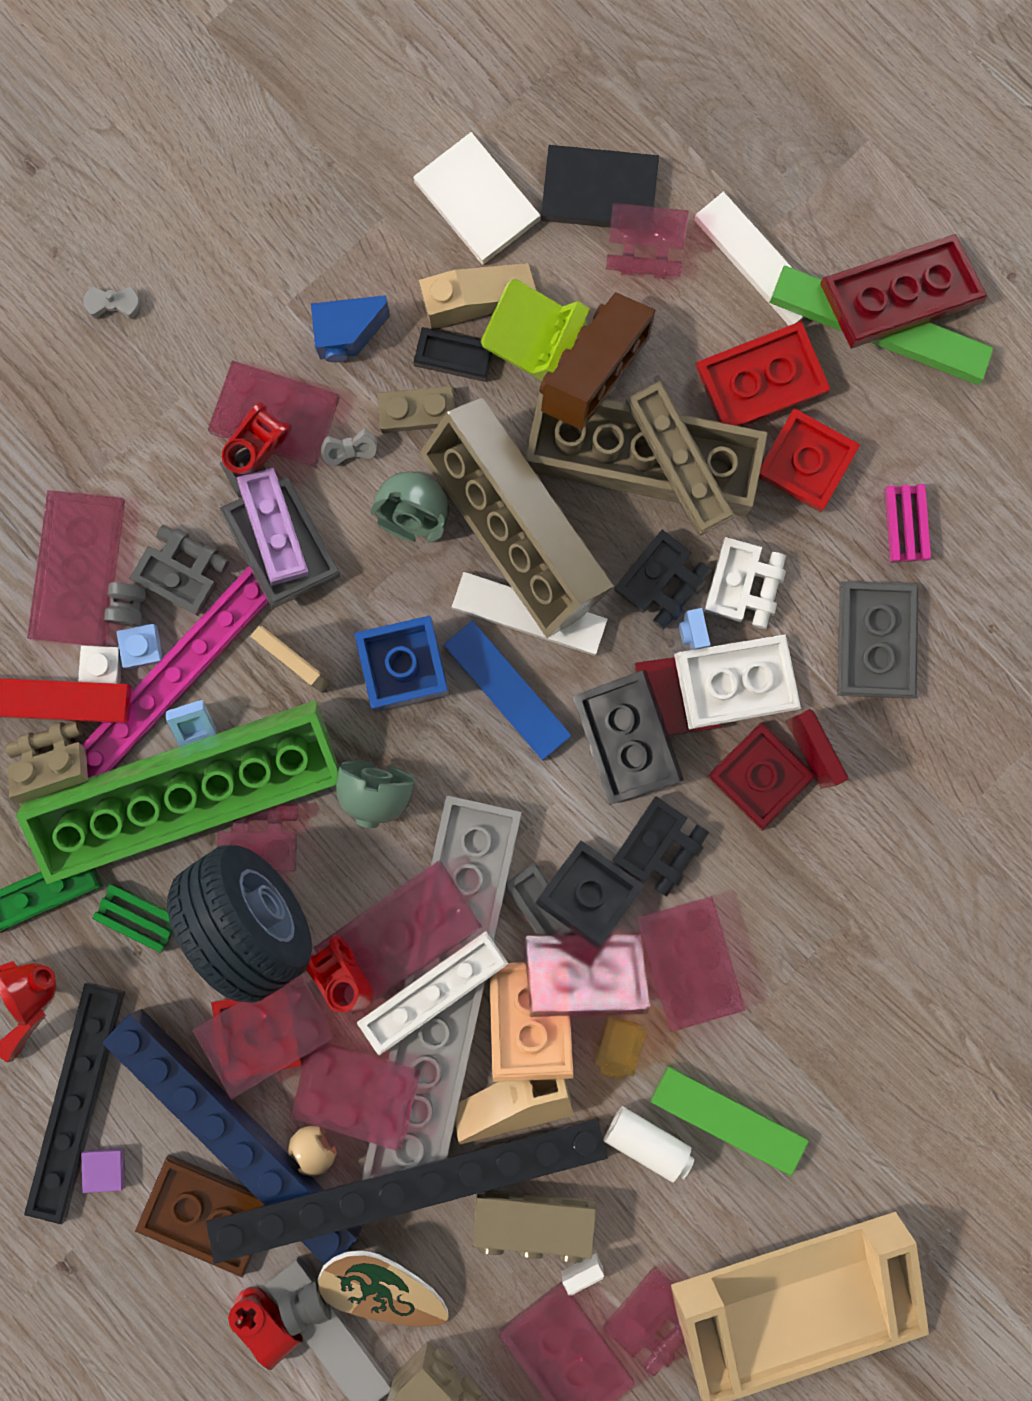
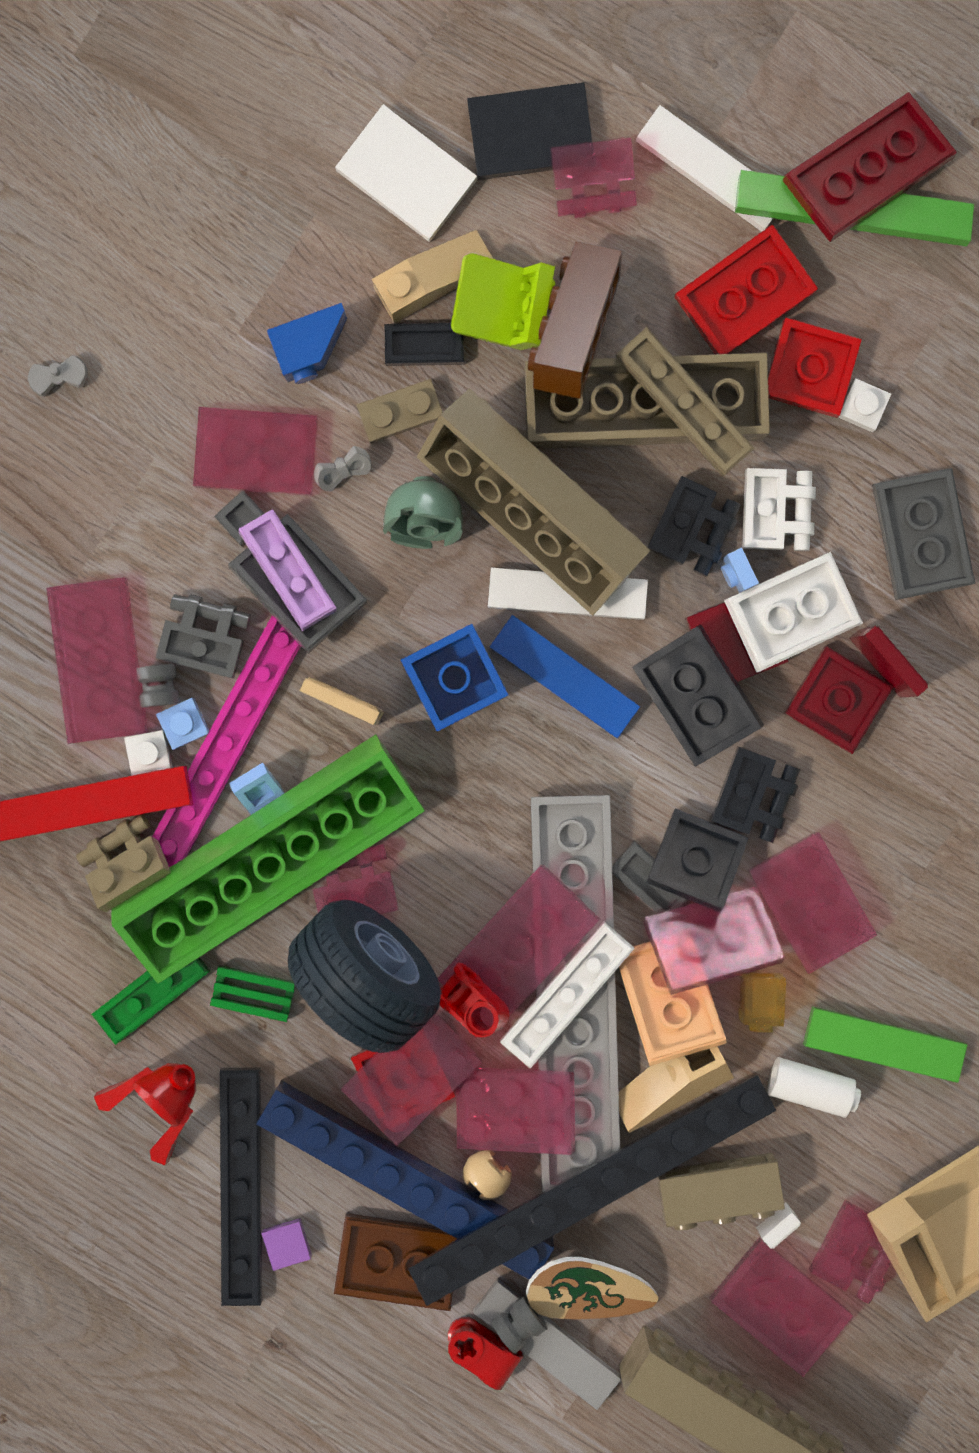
camera: 20 degrees left, 5 degrees up
(255, 438) = (249, 485): red piece -> none
(372, 793) = (458, 814): sand green cylinder -> none
(849, 507) = (864, 405): none -> white plate
(905, 492) = (941, 402): dark pink tile -> none

